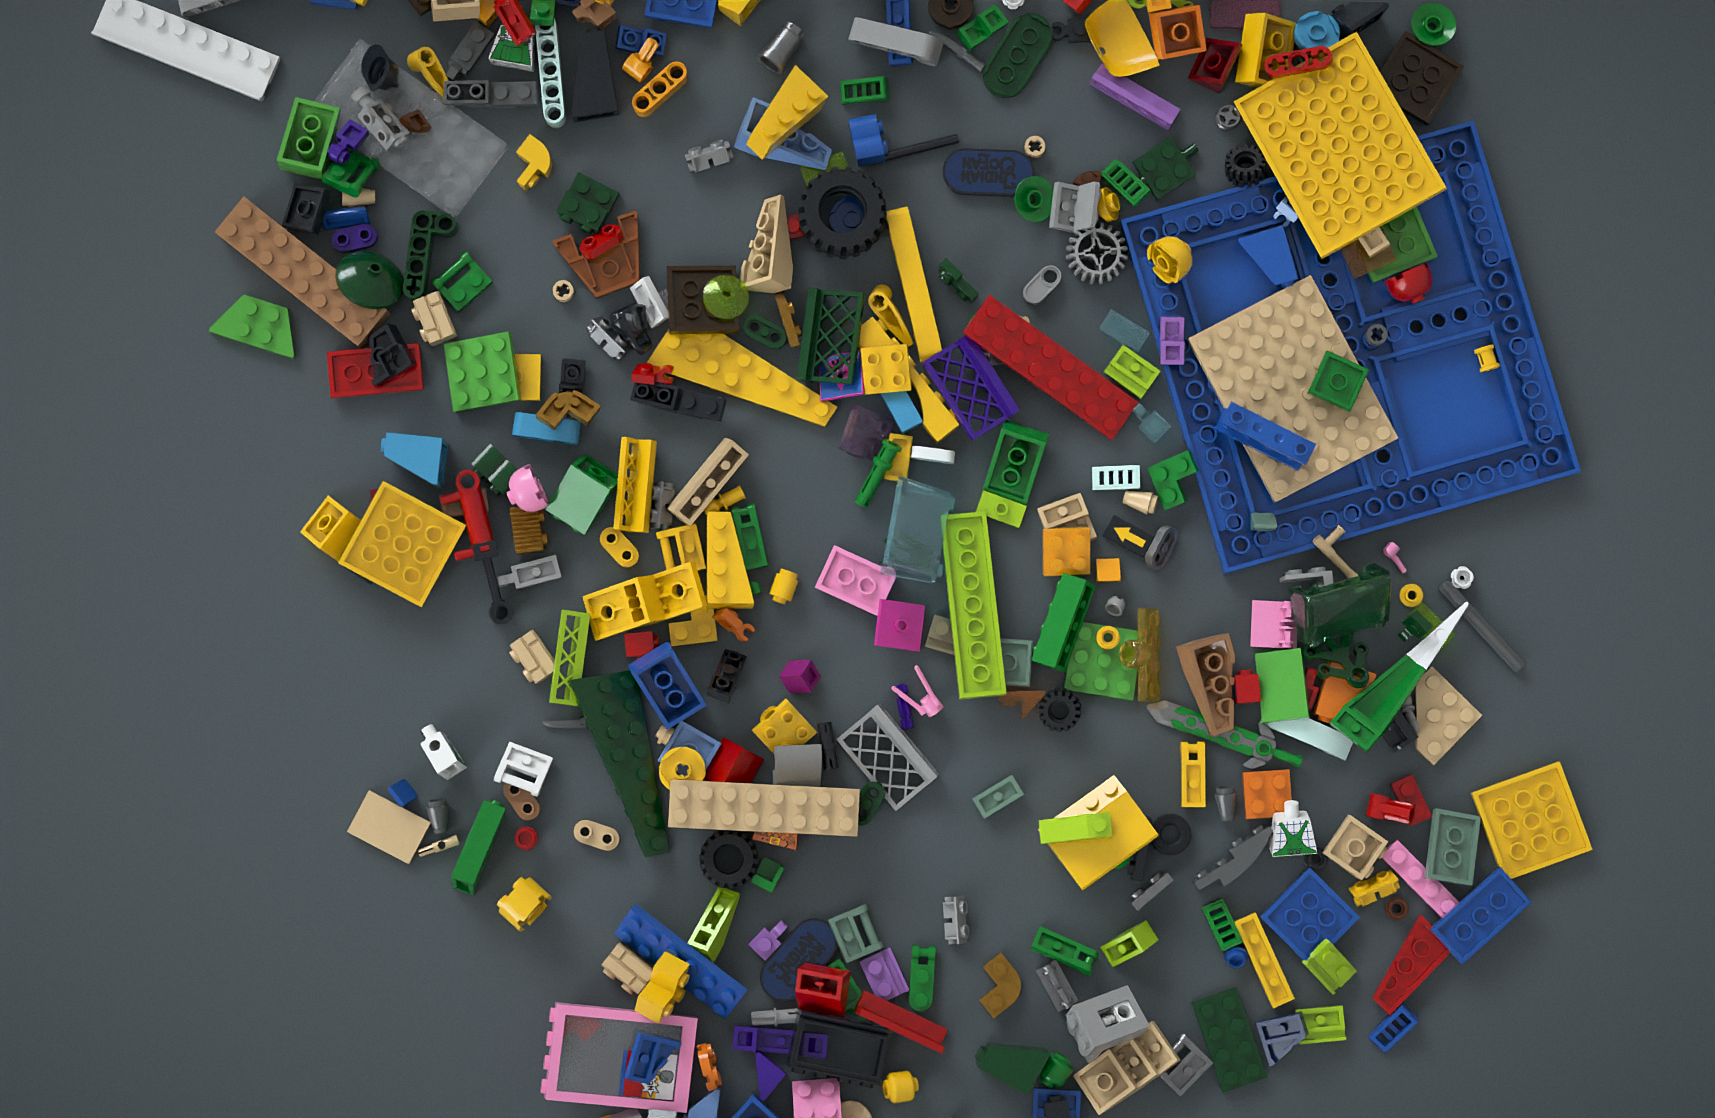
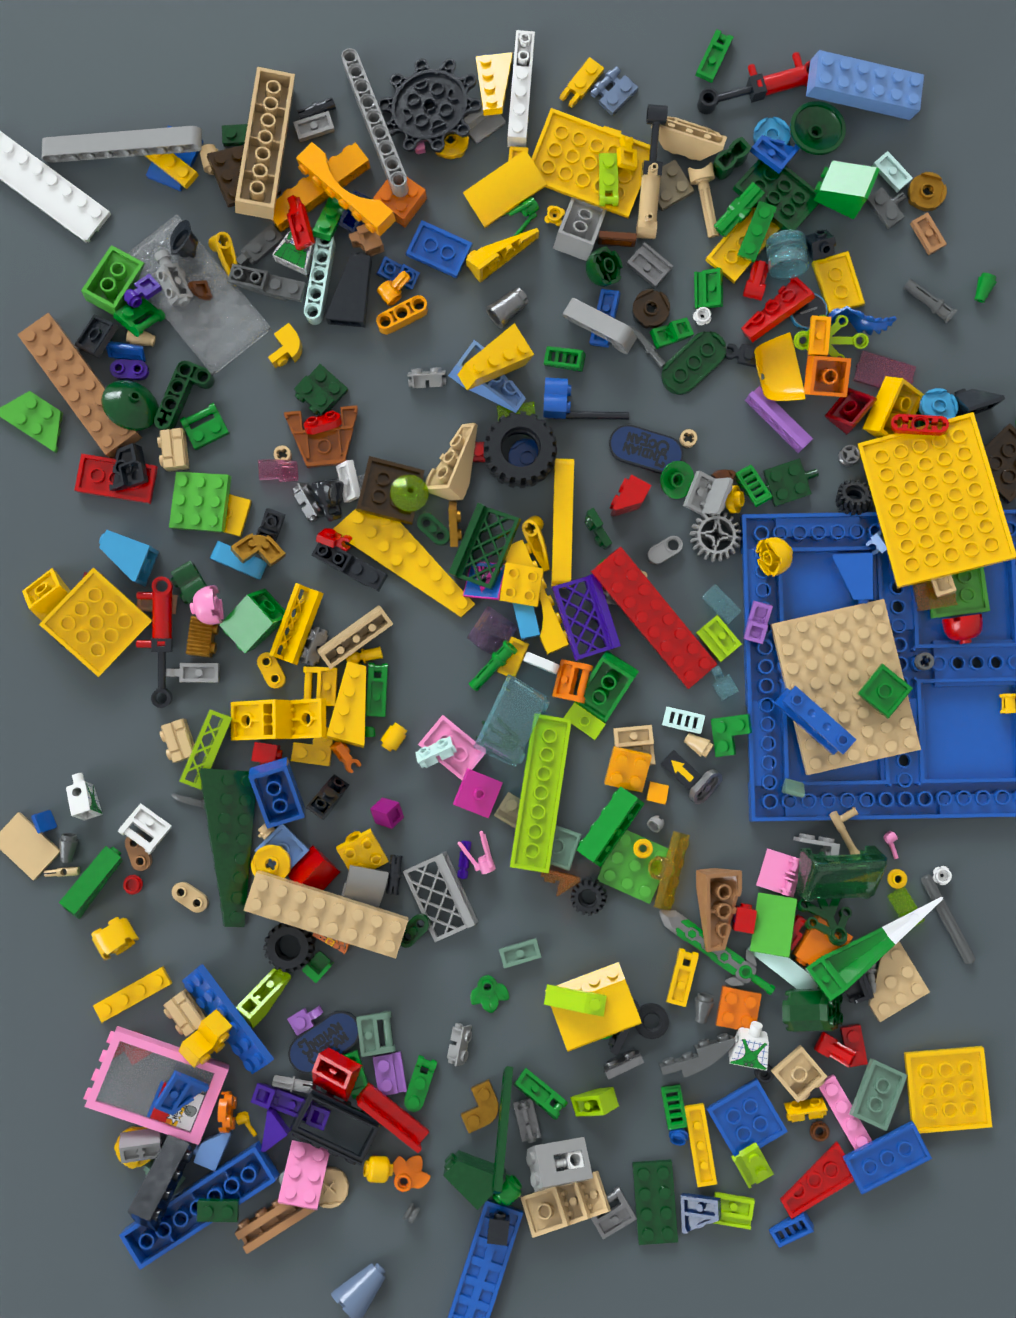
camera: 15 degrees right, 0 degrees up
(560, 964) = (132, 994): none -> yellow plate
(563, 309) = (278, 469): none -> clear pink slope
(728, 1071) = (243, 1117): none -> yellow hand
(829, 596) = (427, 755): none -> light aqua hinge
(939, 1079) = (411, 1171): none -> orange plate
(967, 466) = (567, 679): none -> orange plate
(975, 857) = (489, 996): none -> green plate
(987, 232) = (632, 496): none -> red slope
(1031, 999) = (502, 1130): none -> dark green tile
(1351, 771) = (811, 1011): none -> dark green brick
(1415, 625) = (895, 905): dark green plate -> none

